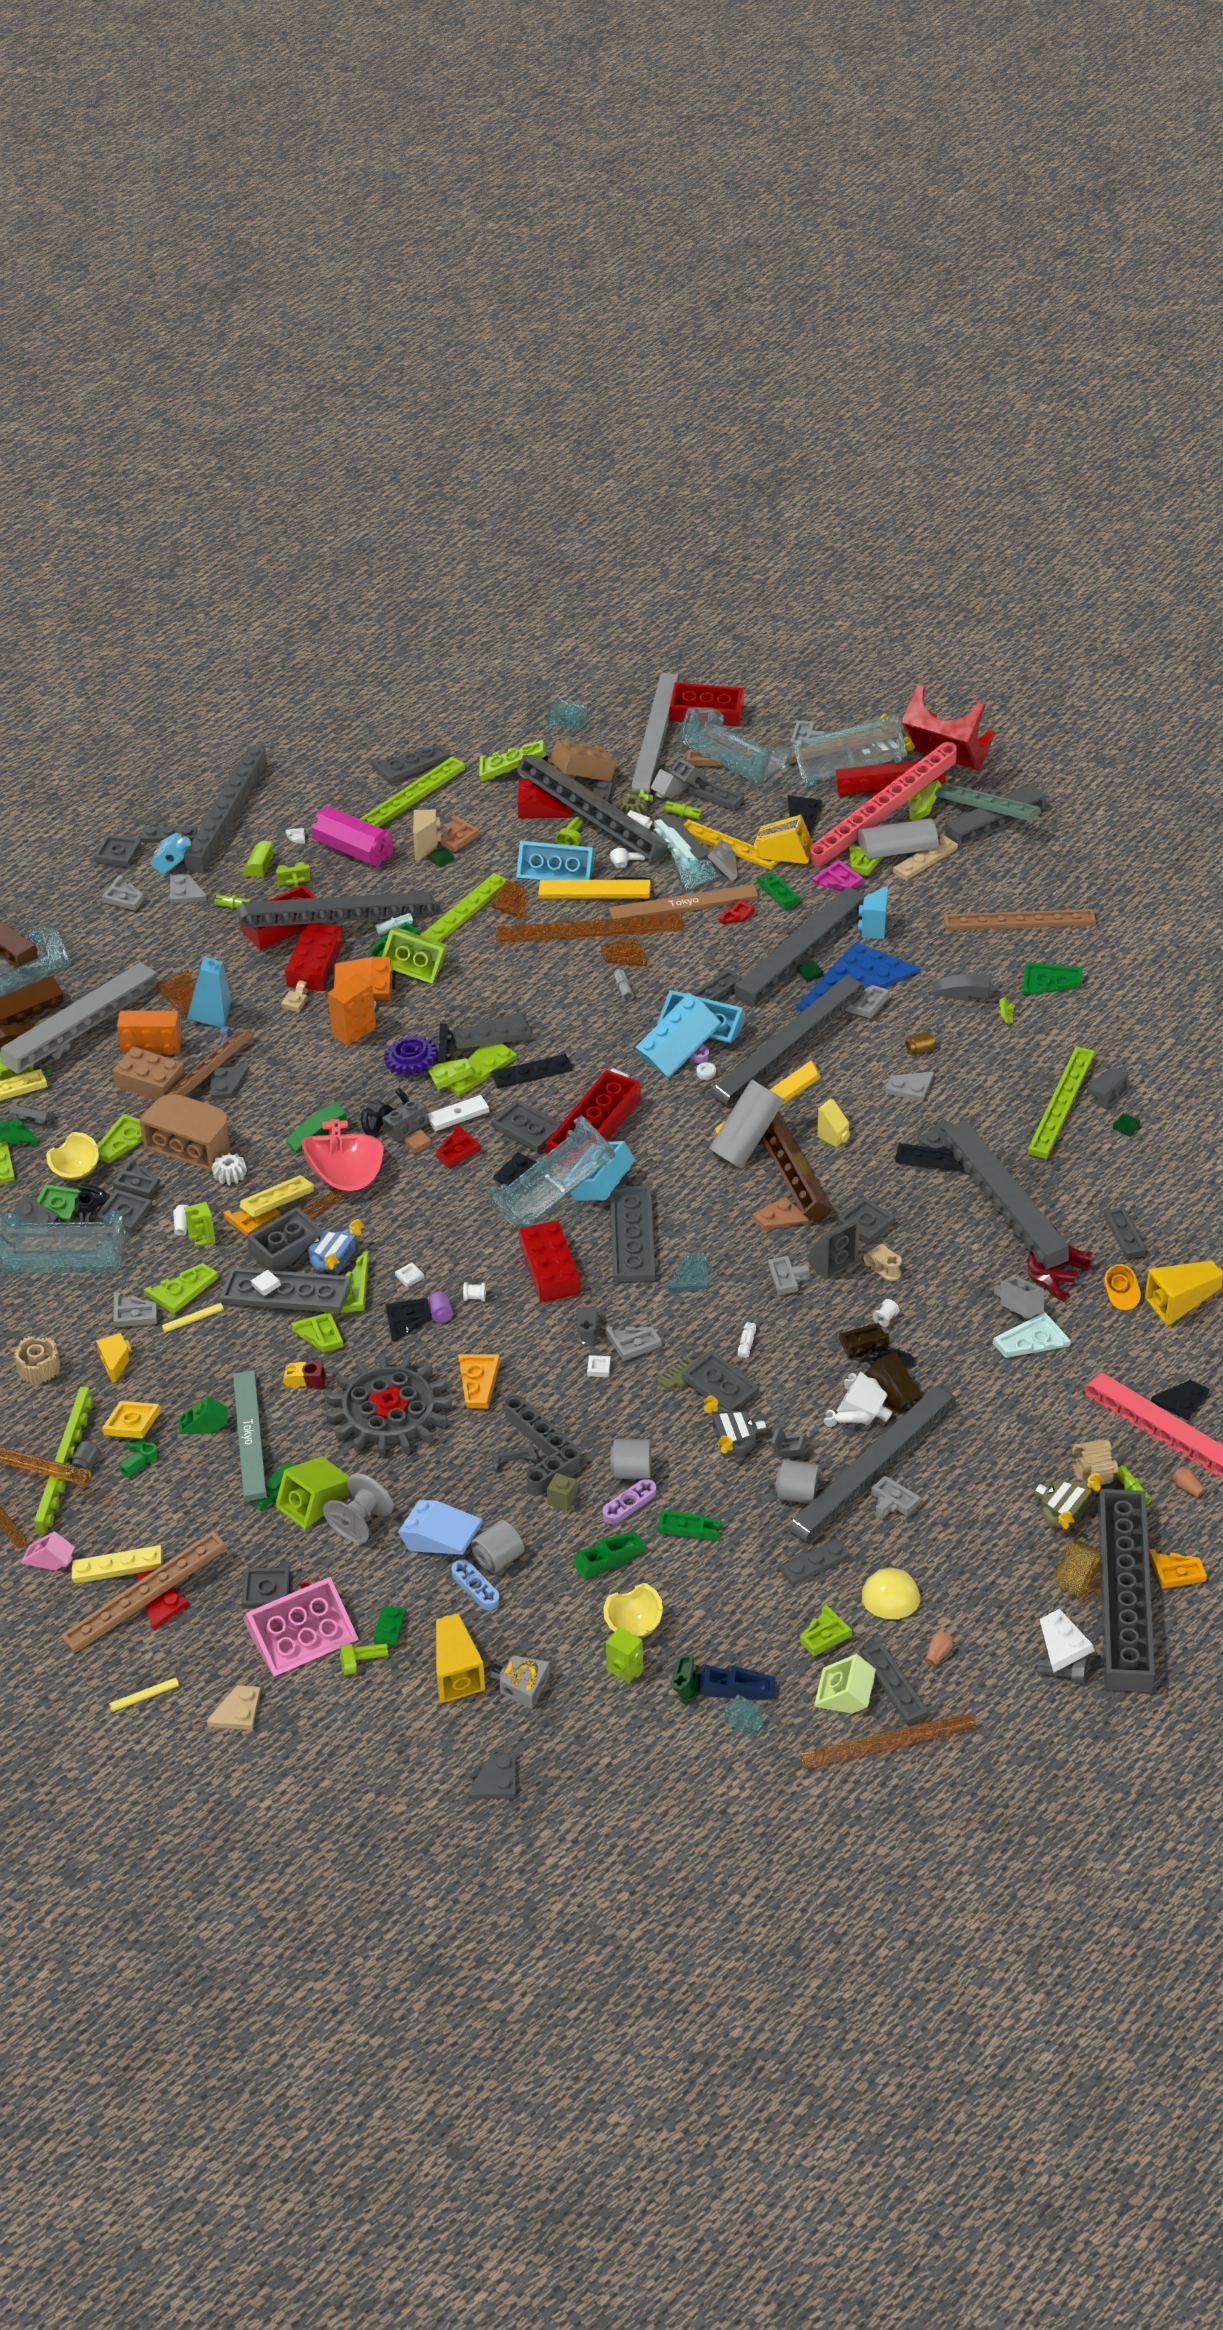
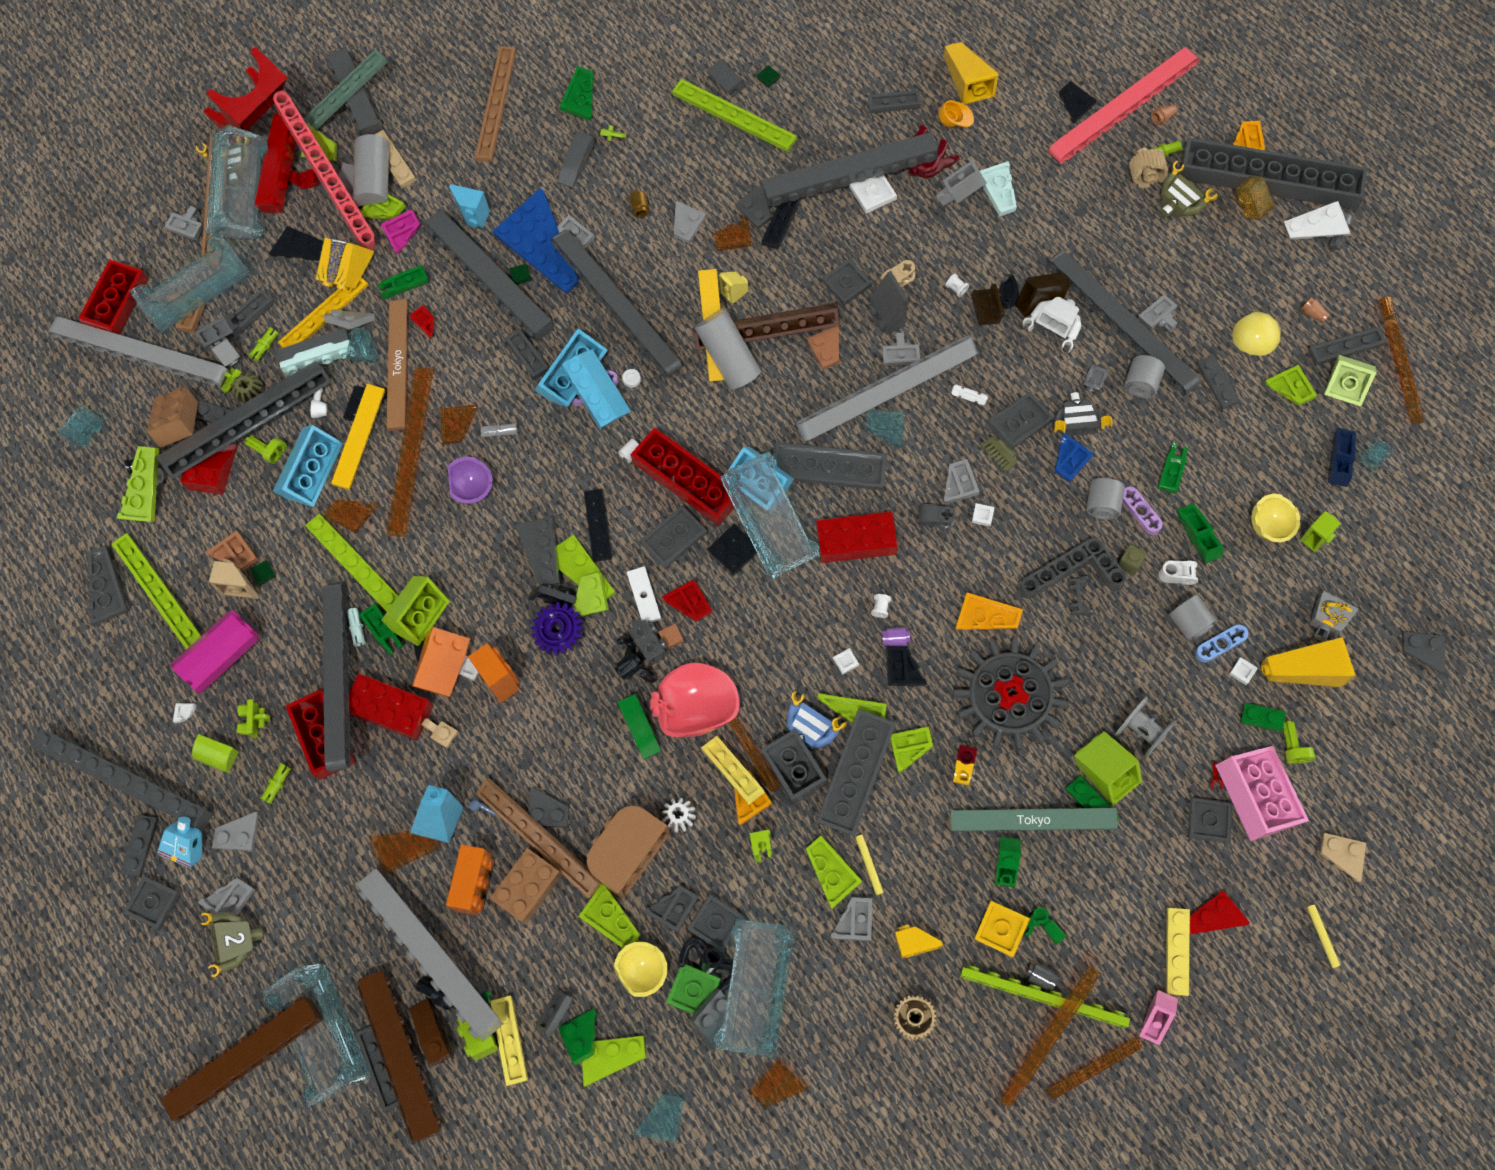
camera: 75 degrees left, 25 degrees up
(85, 898) = (231, 939): none -> olive torso
(144, 1592) = (1217, 928): medium nougat tile -> none
(180, 1220) = (739, 866): white cone -> none
(265, 1282) = (850, 788): white tile -> none
(438, 1528) = (1172, 660): light blue slope -> none
(444, 1606) = (1243, 671): none -> white tile
(555, 1535) = (1183, 572): none -> white piece
(558, 967) = (469, 480): none -> medium lavender cylinder
(644, 820) = (271, 380): white cone -> none
(682, 1432) = (1071, 458): none -> blue wing
(686, 1679) = (1336, 491): dark green piece -> none
(737, 1266) = (886, 388): none -> light grey beam
(900, 1123) = (733, 236): none -> clear orange wing
(990, 1229) = (873, 193): none -> white plate

